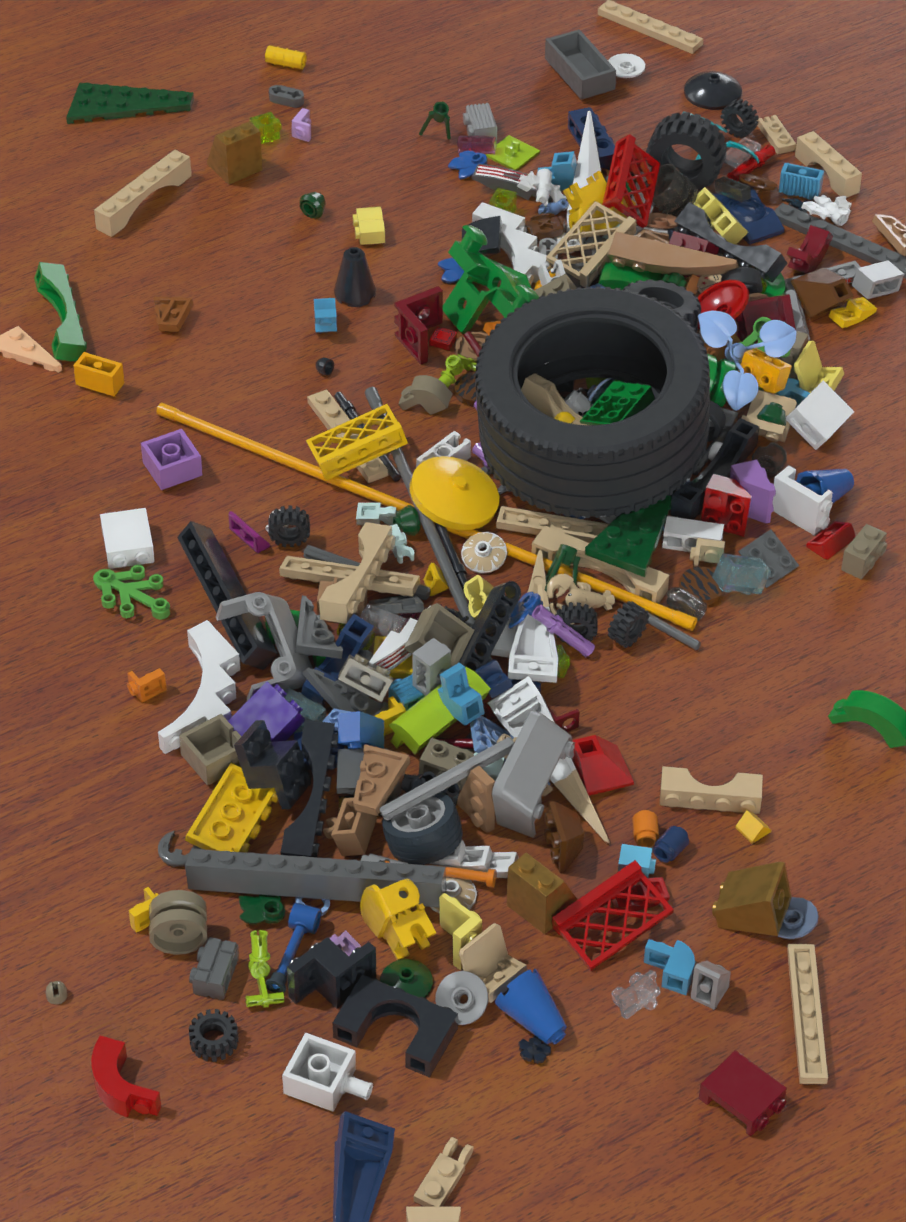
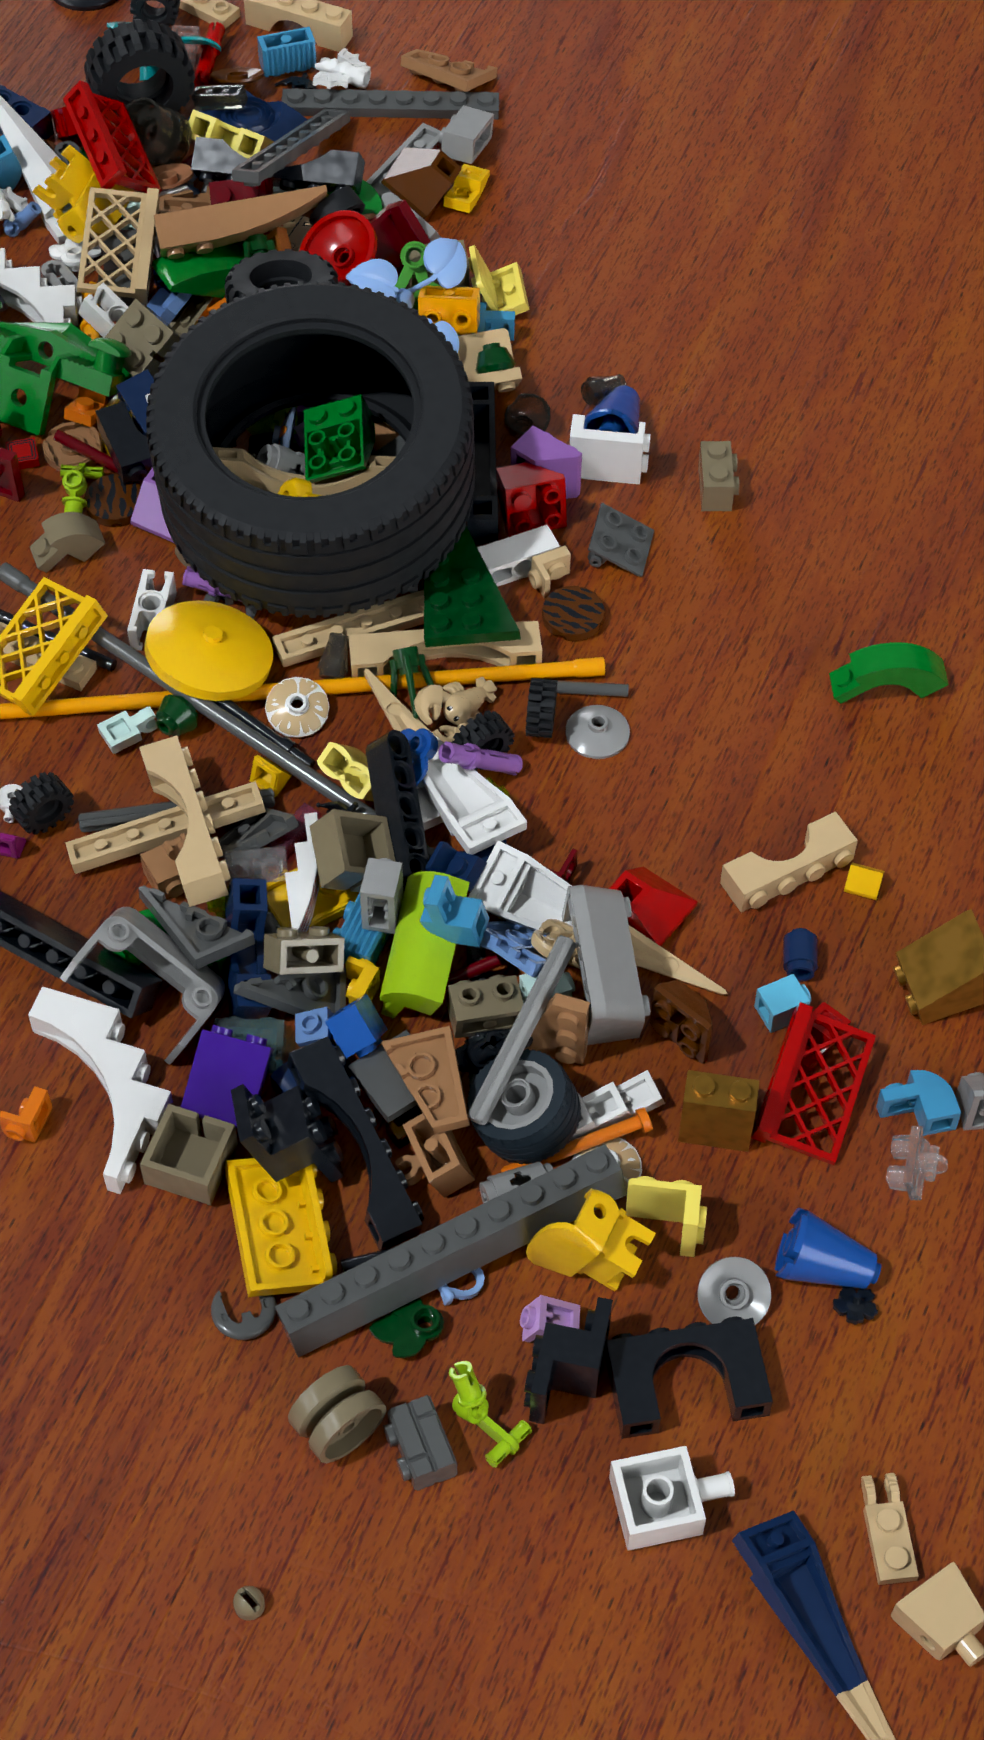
camera: 35 degrees left, 10 degrees up
(112, 1089) = (422, 1683): red arch -> none
(140, 913) = (274, 1427): yellow bracket -> none
(209, 1023) = (484, 1554): black tyre -> none
(304, 920) = (473, 1311): blue piece -> none
(400, 548) = (199, 757): light aqua plate -> none
(417, 984) = (631, 1318): dark green dish -> none
(490, 961) = (739, 1228): tan bracket -> none
(525, 537) = (334, 658): none -> clear smoke cone
(545, 226) = (31, 247): reddish brown tile -> none
(645, 828) = (758, 952): orange brick -> none
(659, 659) = (597, 741): none -> light grey dish
(685, 602) = (574, 644): clear smoke piece -> none
(741, 574) = (615, 576): clear light blue brick -> none
(744, 233) = (290, 147): none -> dark grey plate
(811, 251) = (365, 131): dark red arch -> none
(819, 415) = (542, 334): white panel -> none
(832, 539) = (664, 479): red slope -> none
(835, 463) = (597, 388): none -> clear smoke cone

